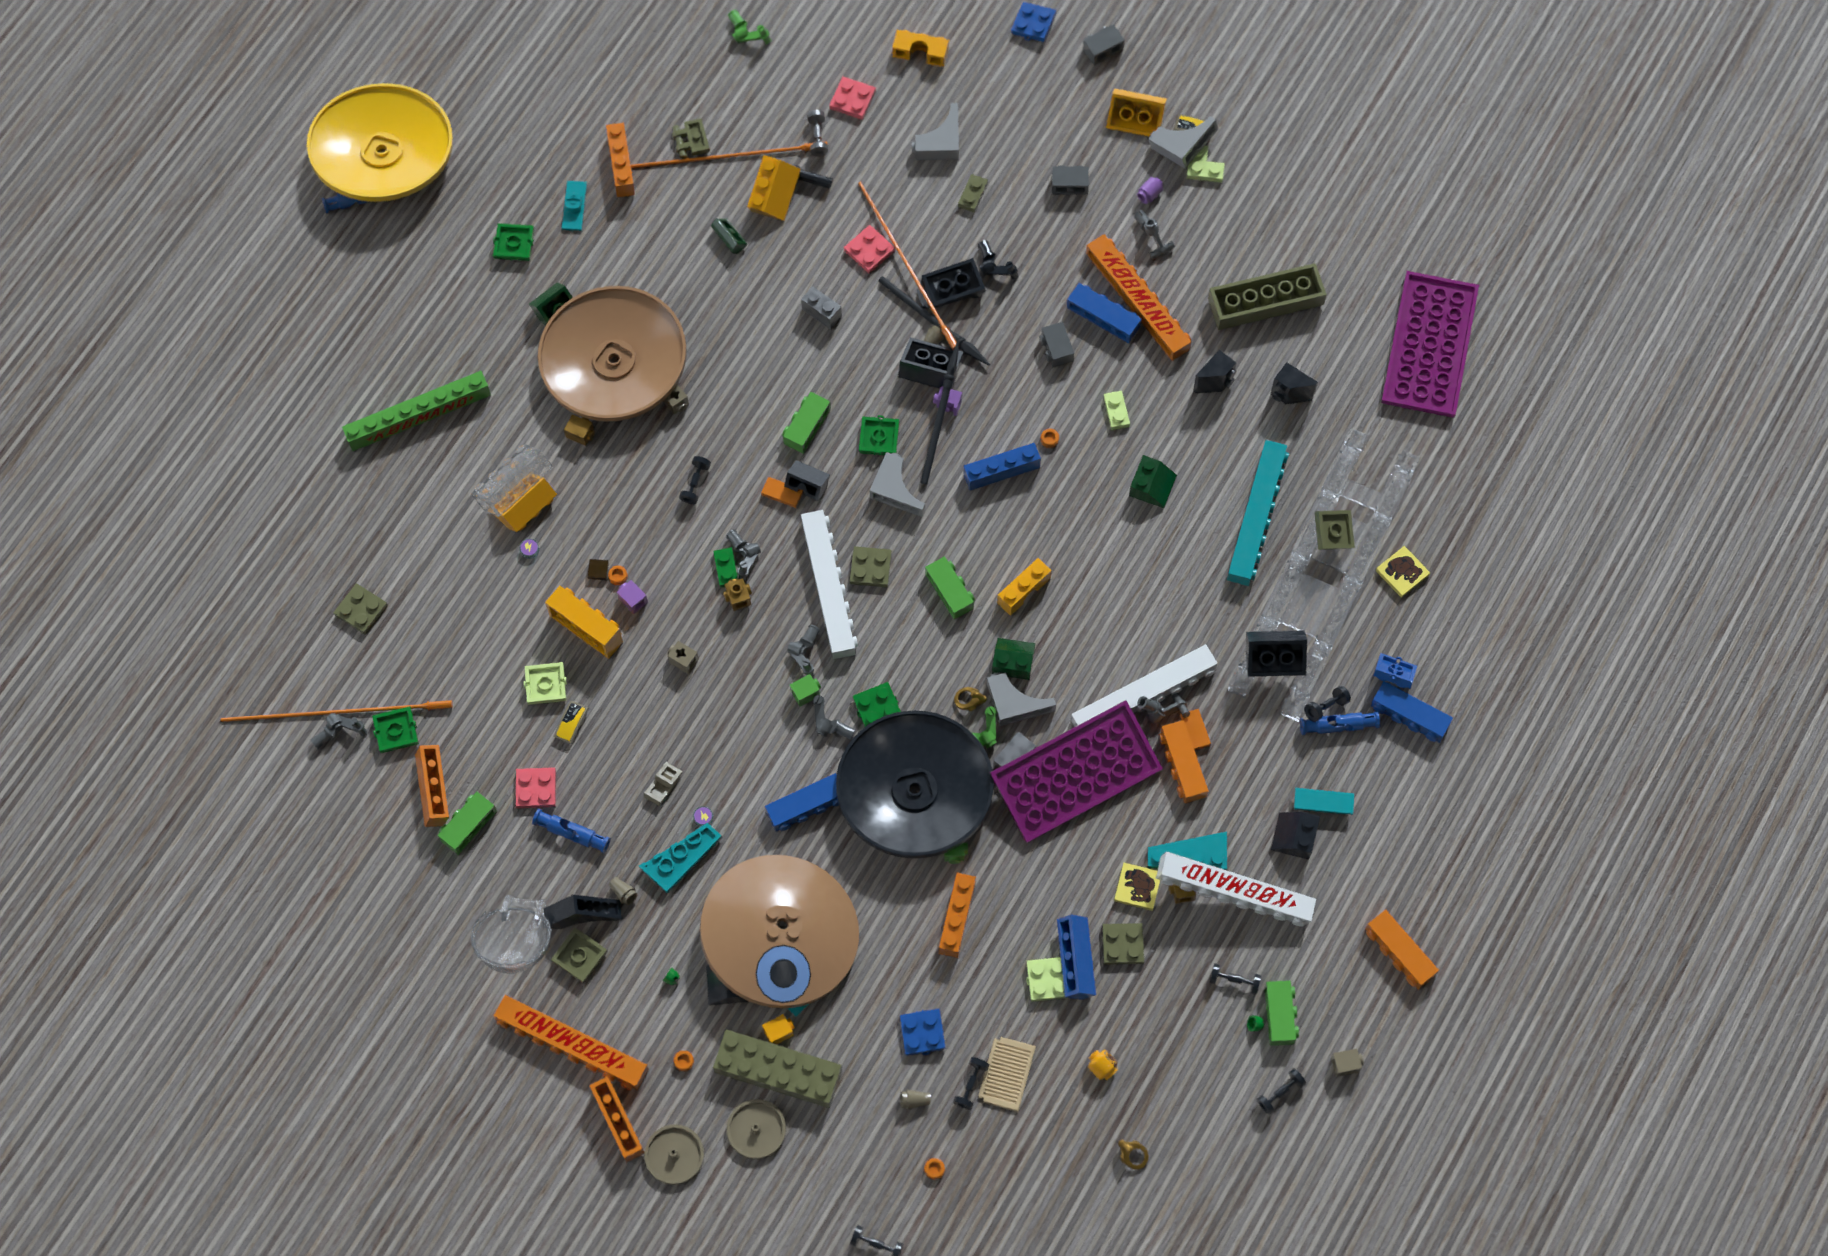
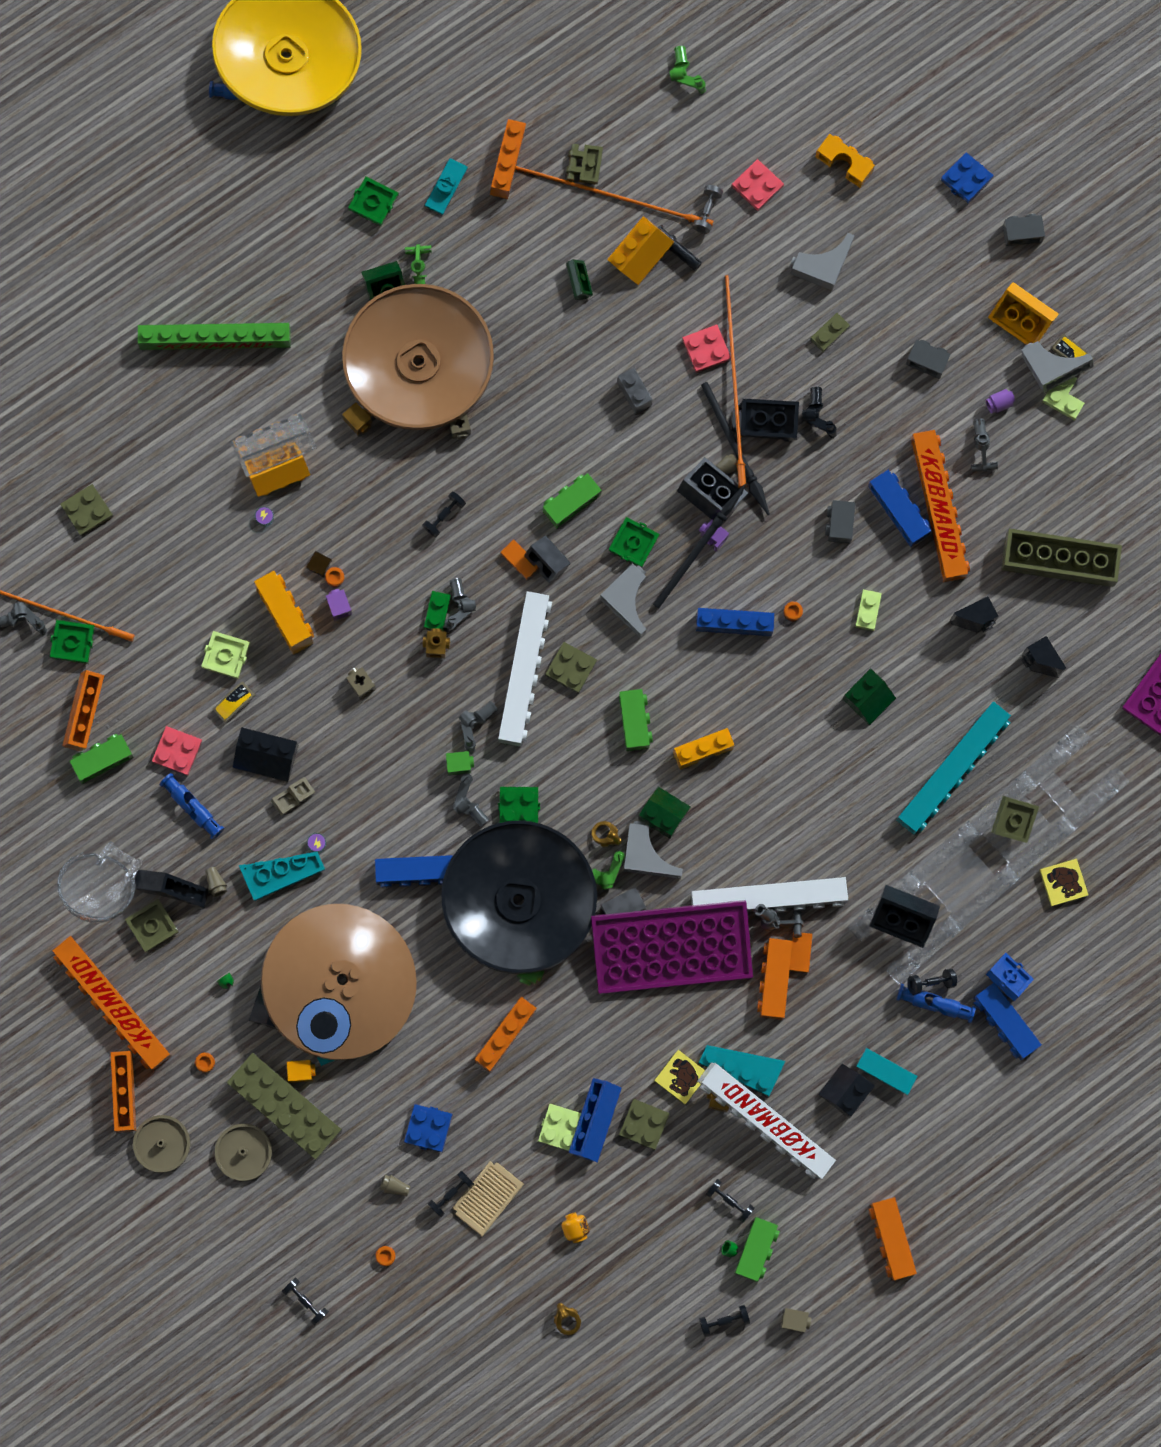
camera: 15 degrees right, 10 degrees up
(578, 277) = (418, 265): none -> bright green pin
(620, 756) = (265, 754): none -> black slope

